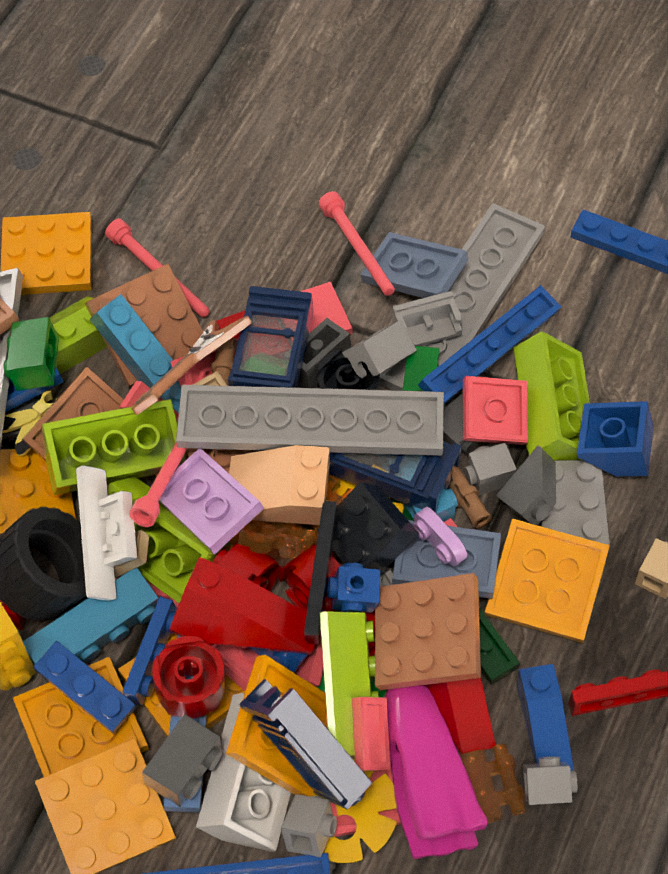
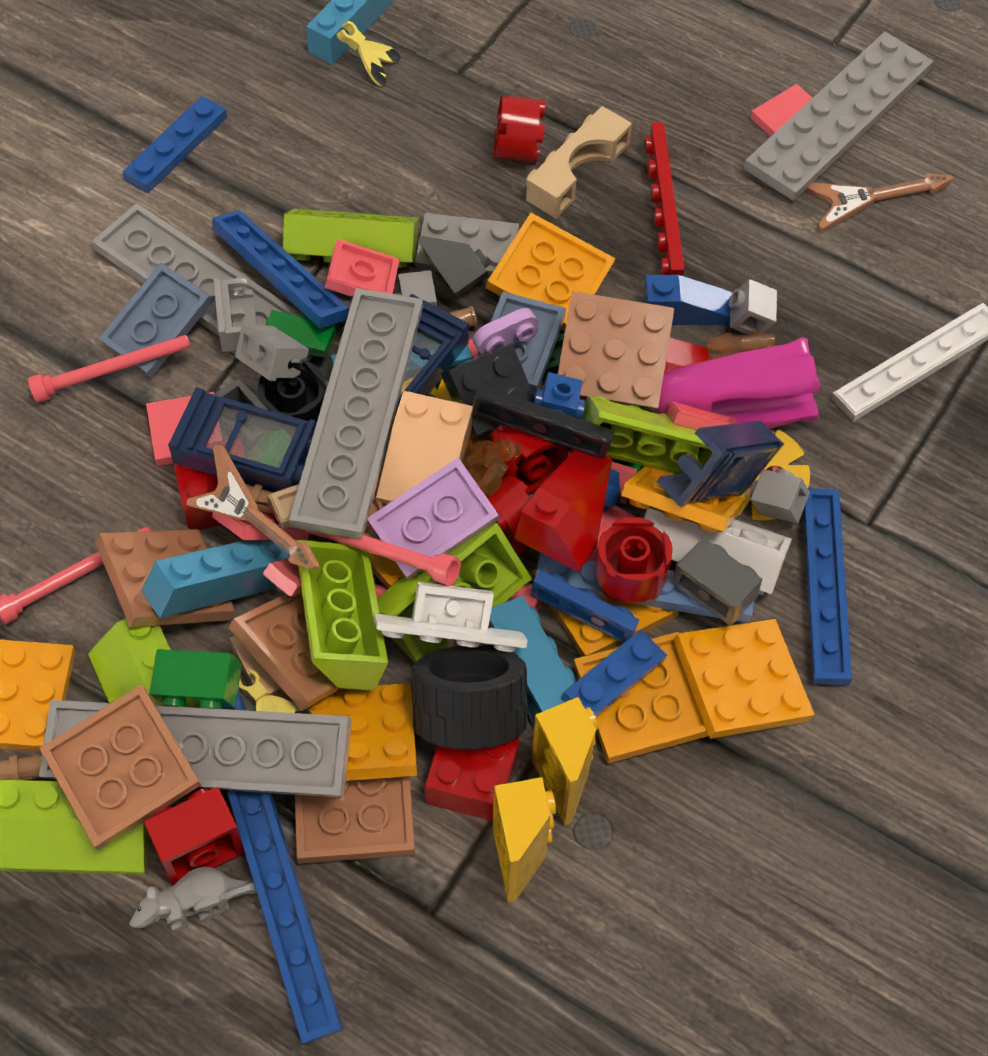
camera: 85 degrees left, 0 degrees up
(617, 437) = (410, 186): blue slope -> none

